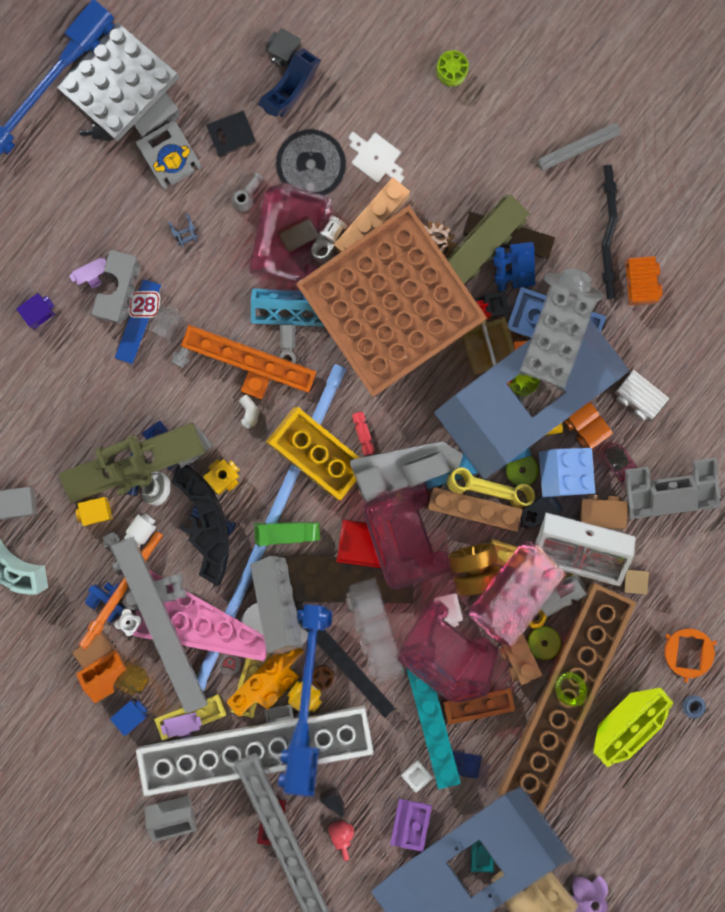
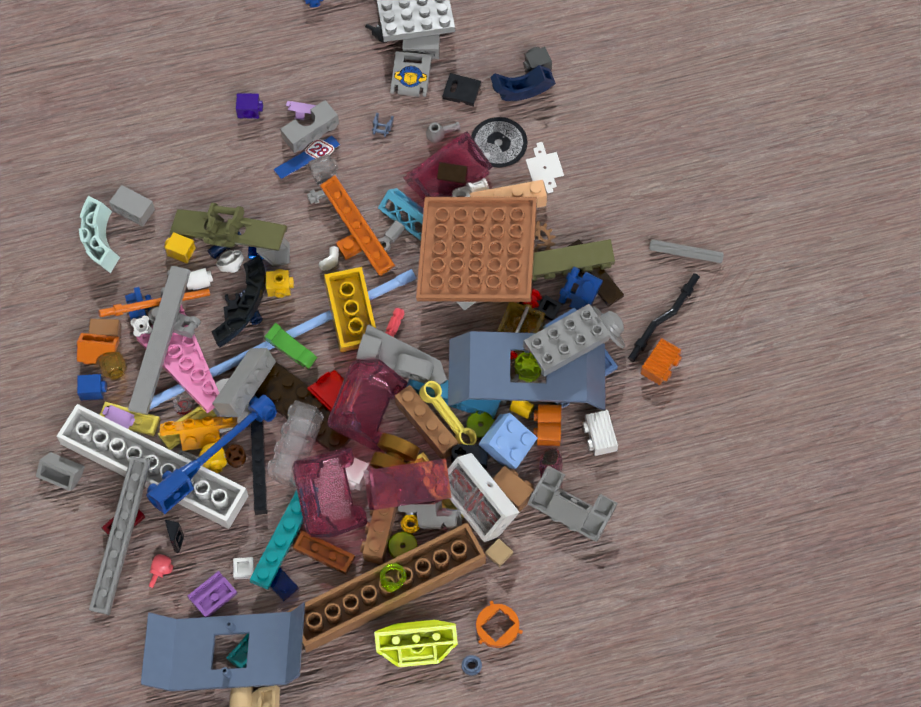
camera: 45 degrees right, 20 degrees down
(452, 68) = (639, 147): lime wheel -> none

